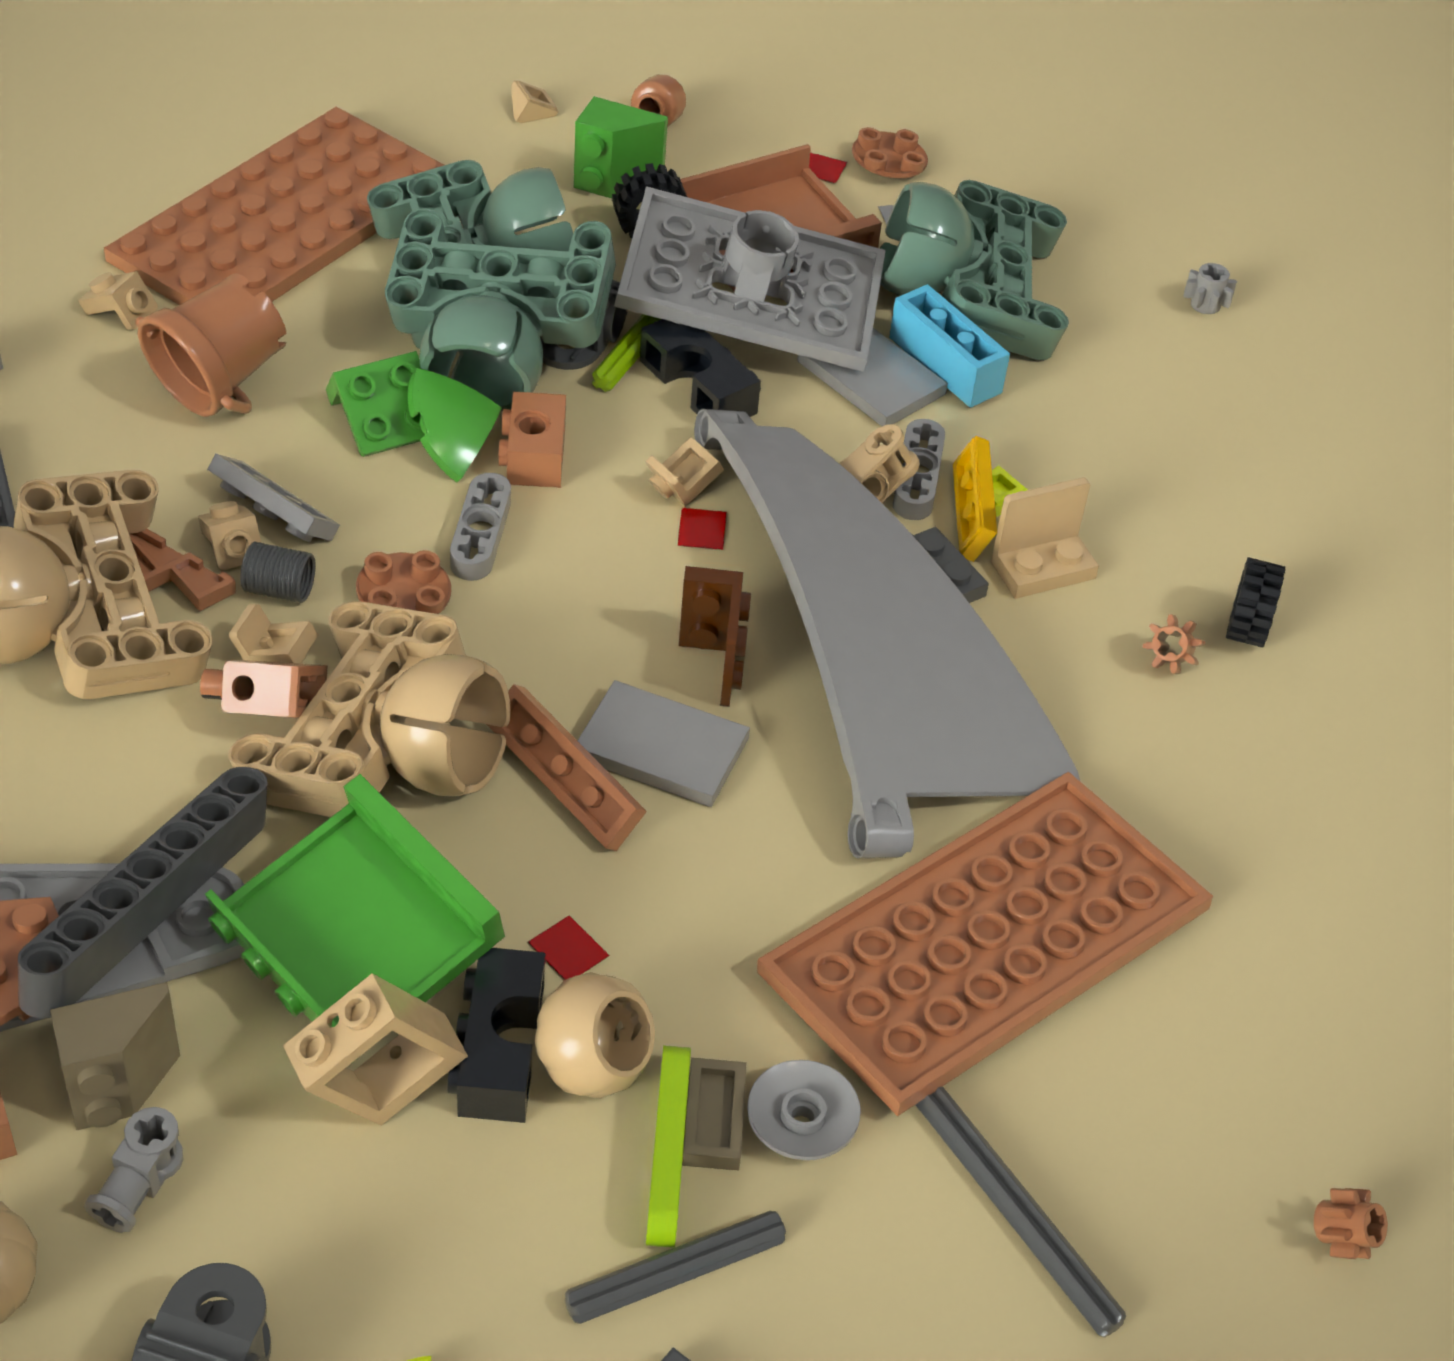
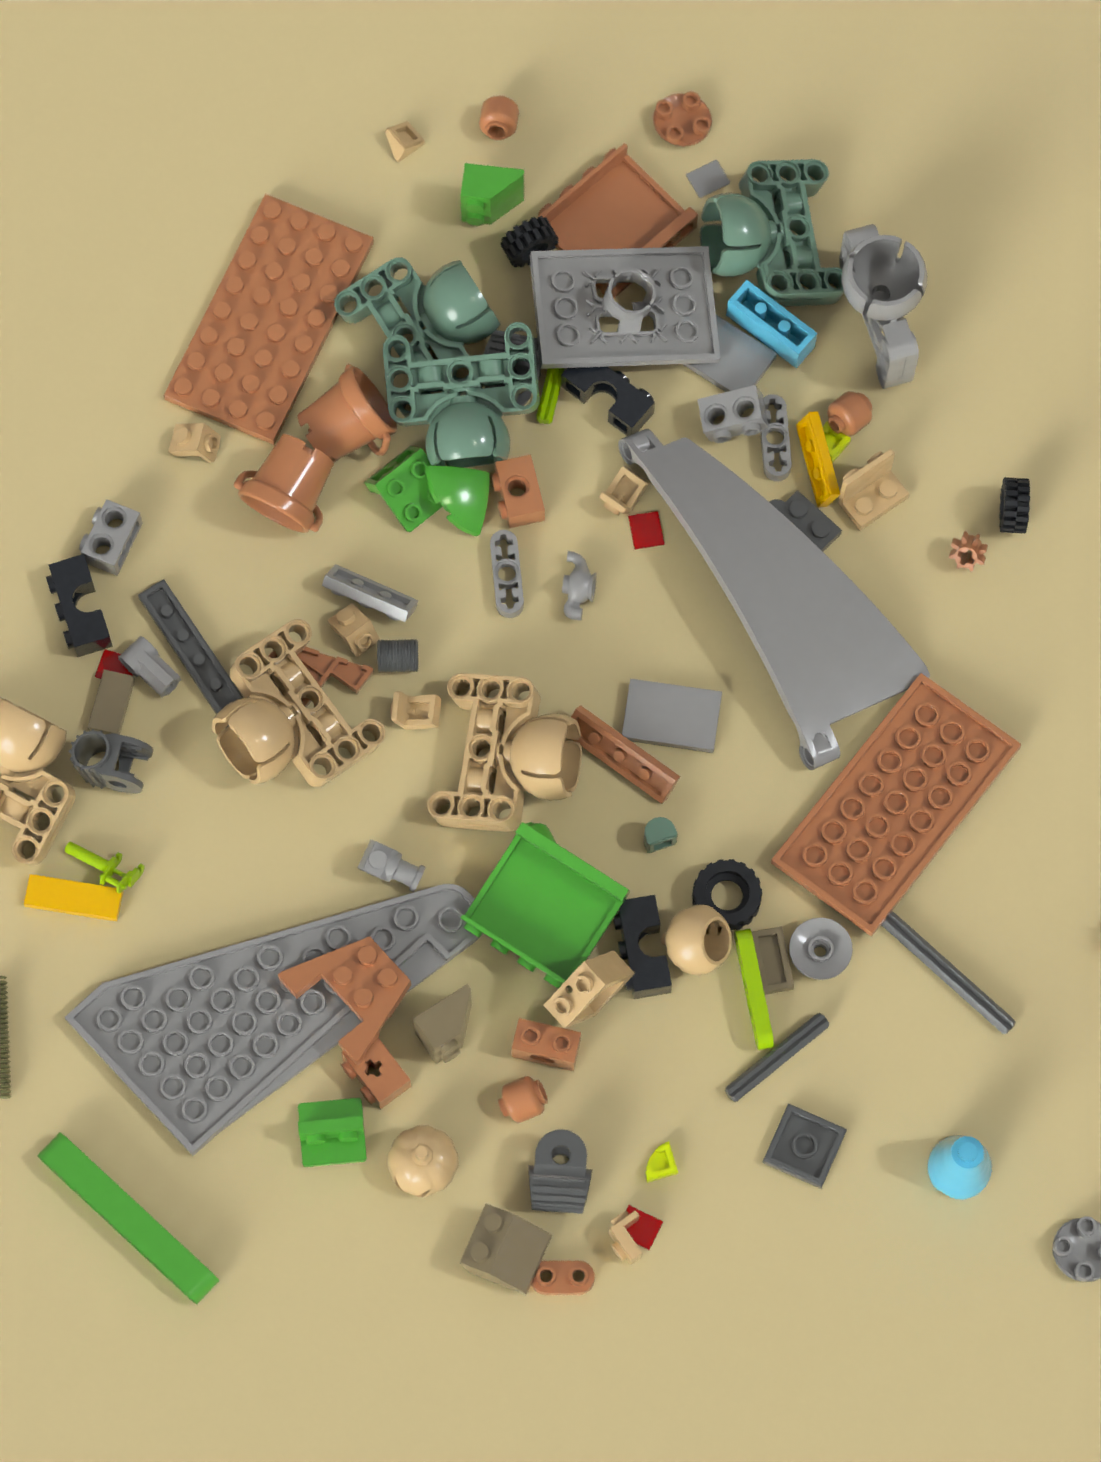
camera: 10 degrees left, 25 degrees up
(124, 808) = (387, 865): none -> light grey connector
(140, 892) = (425, 932): dark grey beam -> none
(141, 1166) = (482, 1083): light grey connector -> none
(196, 1214) = (523, 1099): none -> nougat head
(263, 687) = (431, 753): torso -> none
(274, 1136) = (546, 1044): none -> nougat brick
(331, 298) = (349, 417): none -> nougat piece
(404, 581) = (477, 641): nougat dish -> none
(569, 948) = (660, 875): red sticker -> none
(578, 558) = (578, 585): none -> light grey piece
(585, 882) = (659, 834): none -> sand green brick
(689, 962) = (741, 875): none -> black tyre
(711, 616) = (683, 614): reddish brown bracket -> none
(826, 167) = (636, 140): red sticker -> none
(854, 413) = (733, 405): none -> light grey brick
(881, 466) = (748, 458): tan piece -> none
(1034, 457) = (849, 413): none -> nougat head
(1103, 299) = (883, 292): none -> light grey beam
(1210, 288) = (941, 201): light grey gear -> none

